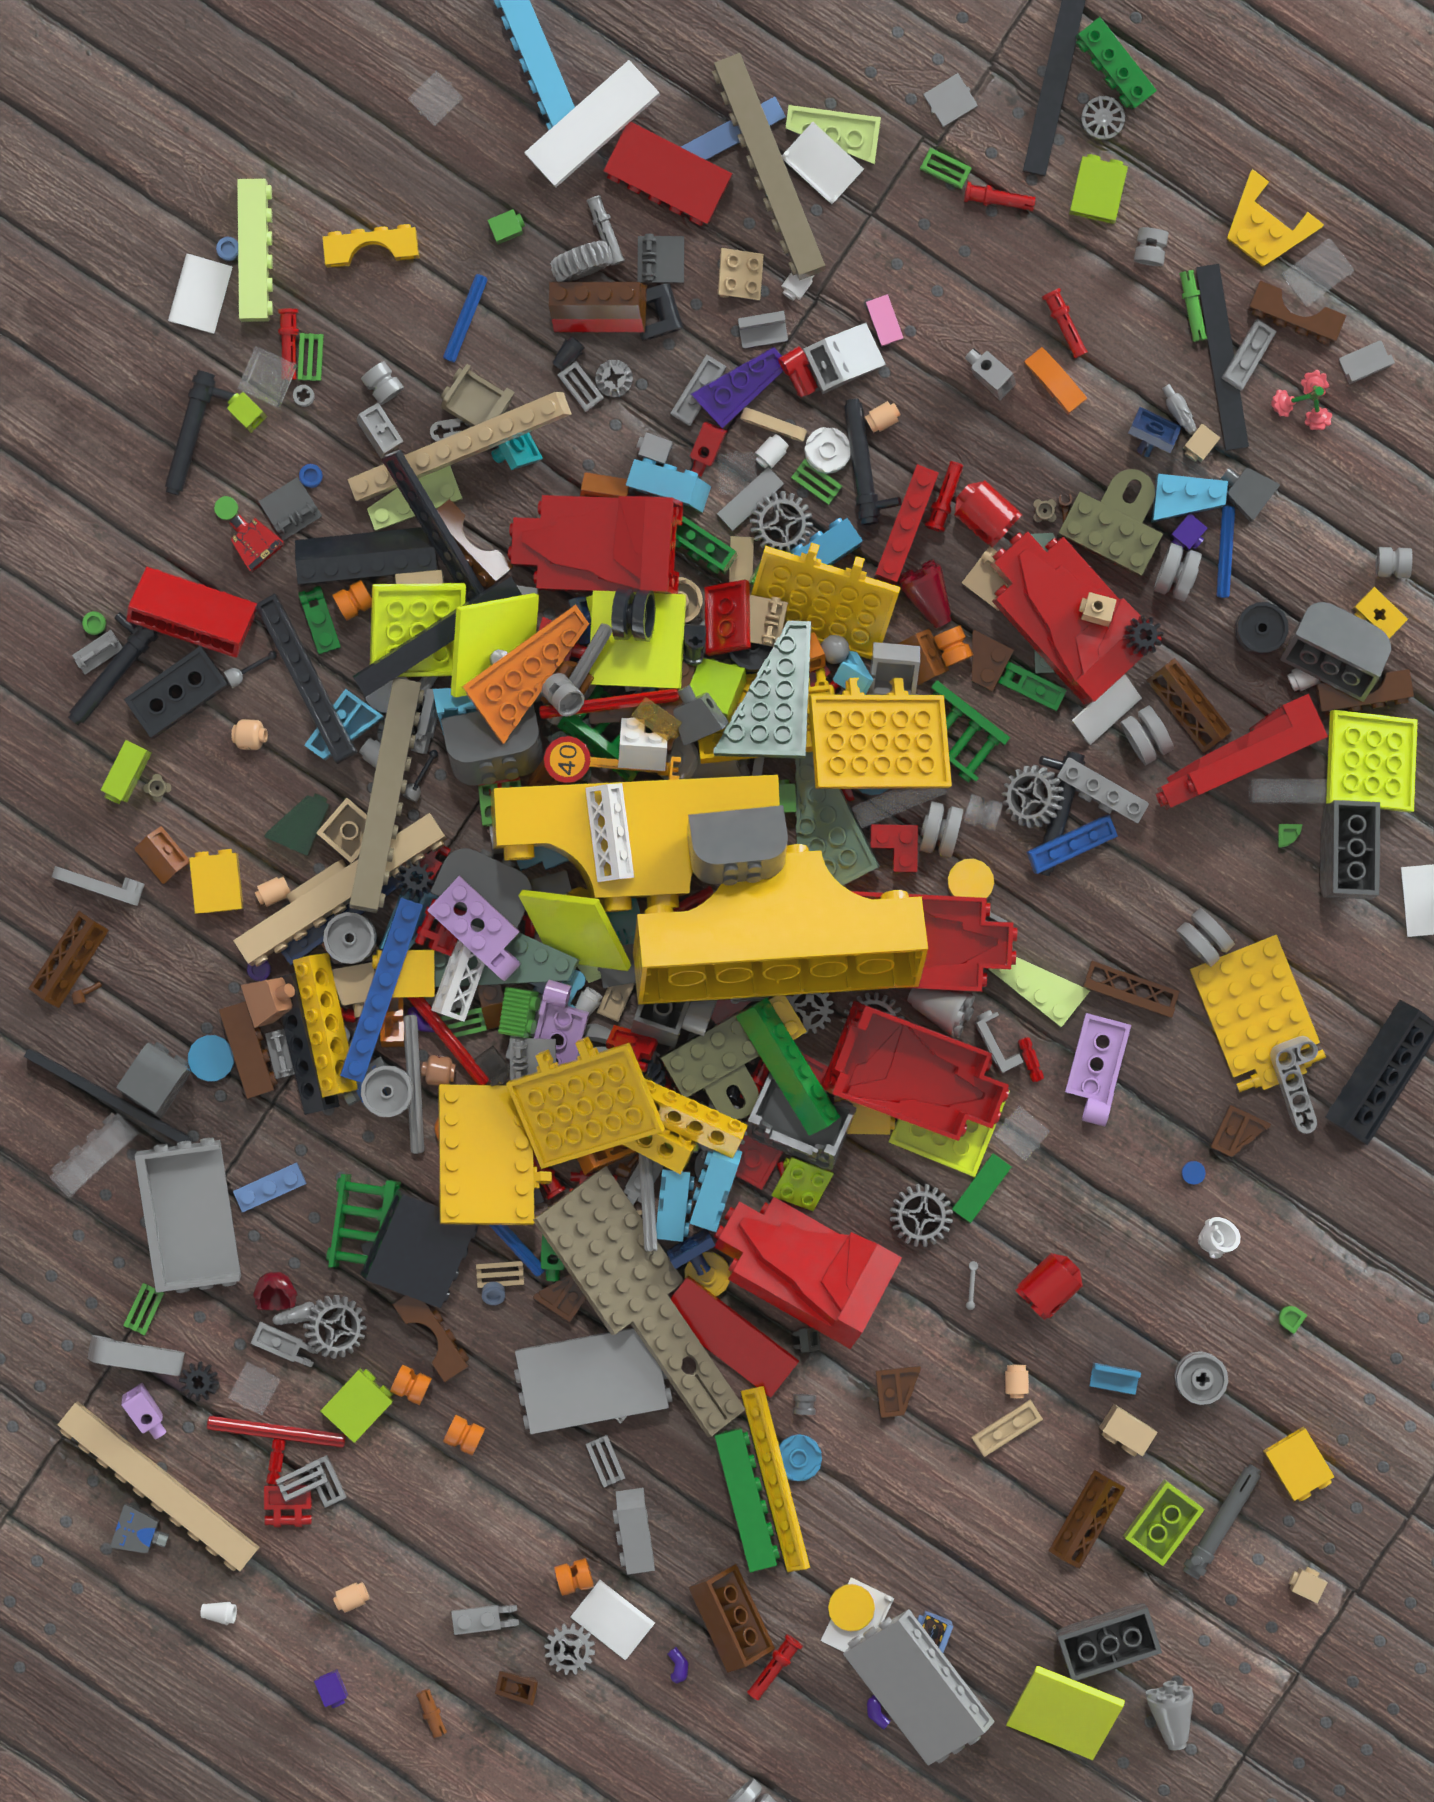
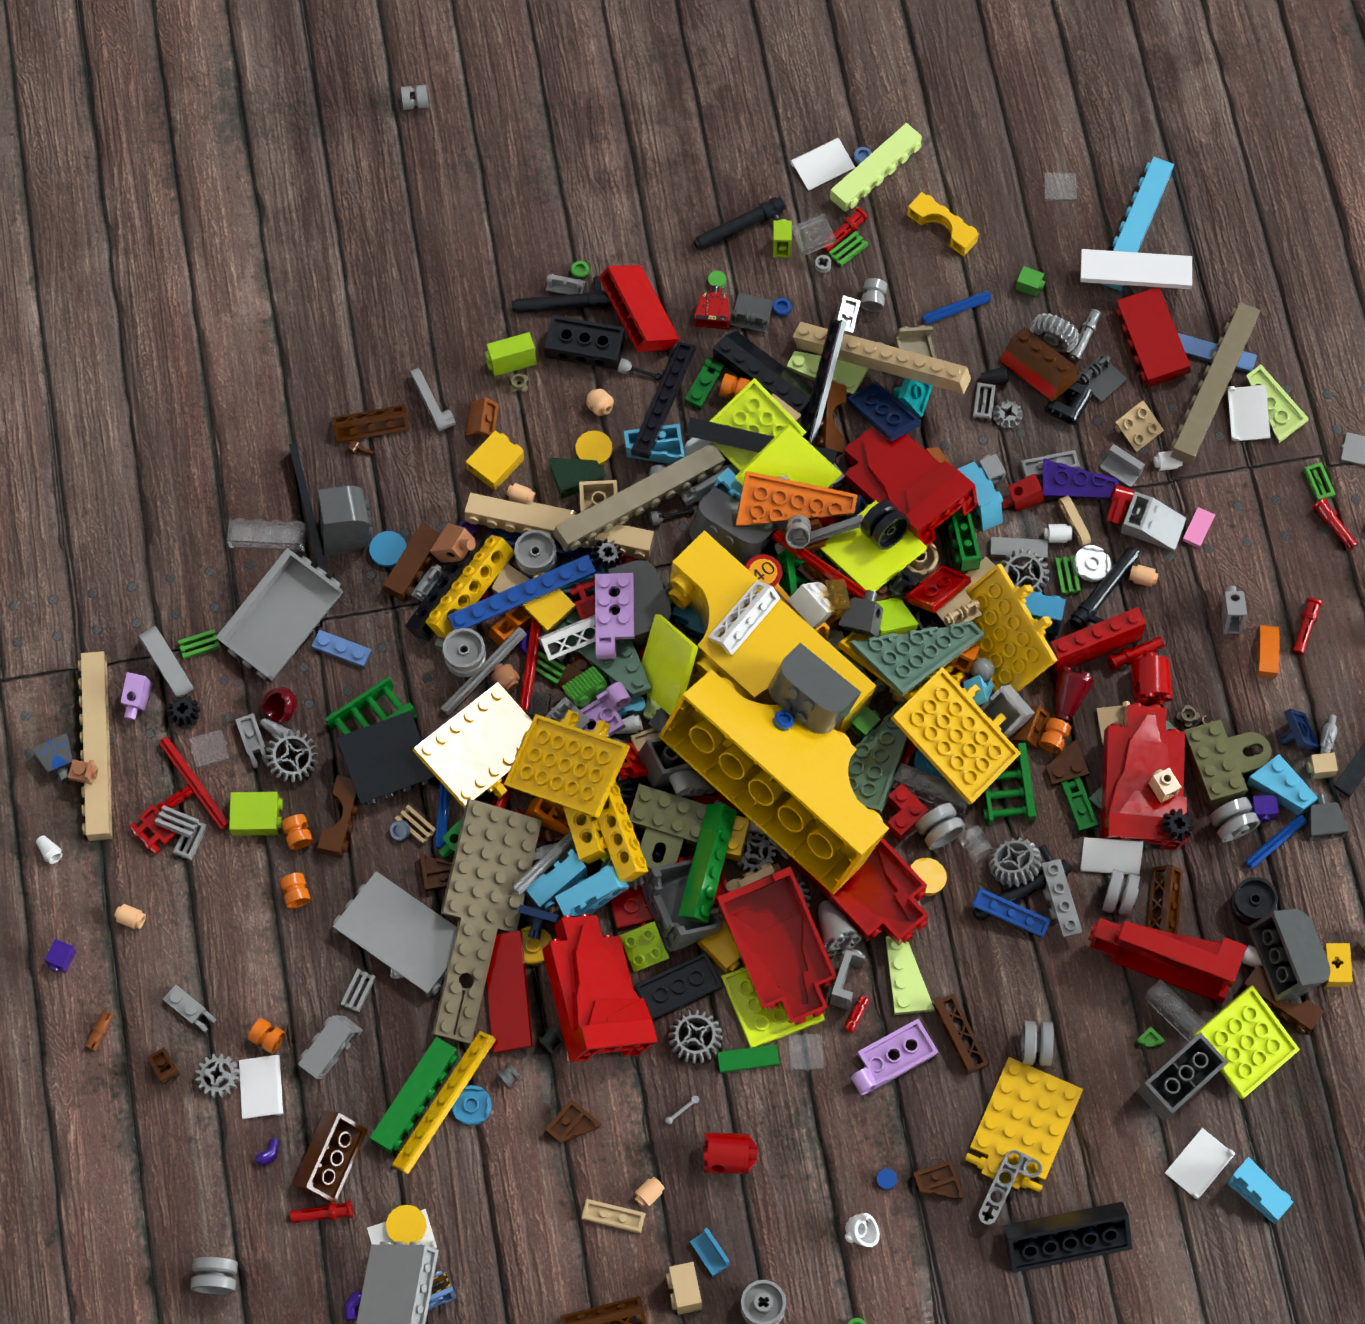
camera: 50 degrees right, 20 degrees down
(178, 1523) = (83, 771): none -> nougat bracket
(288, 781) = (594, 446): none -> yellow tile
(507, 491) = (883, 411): none -> dark blue tile
(741, 895) = (783, 720): none -> blue tile
(831, 1035) = (750, 877): none -> tan hinge
(862, 1185) = (679, 986): none -> black tile

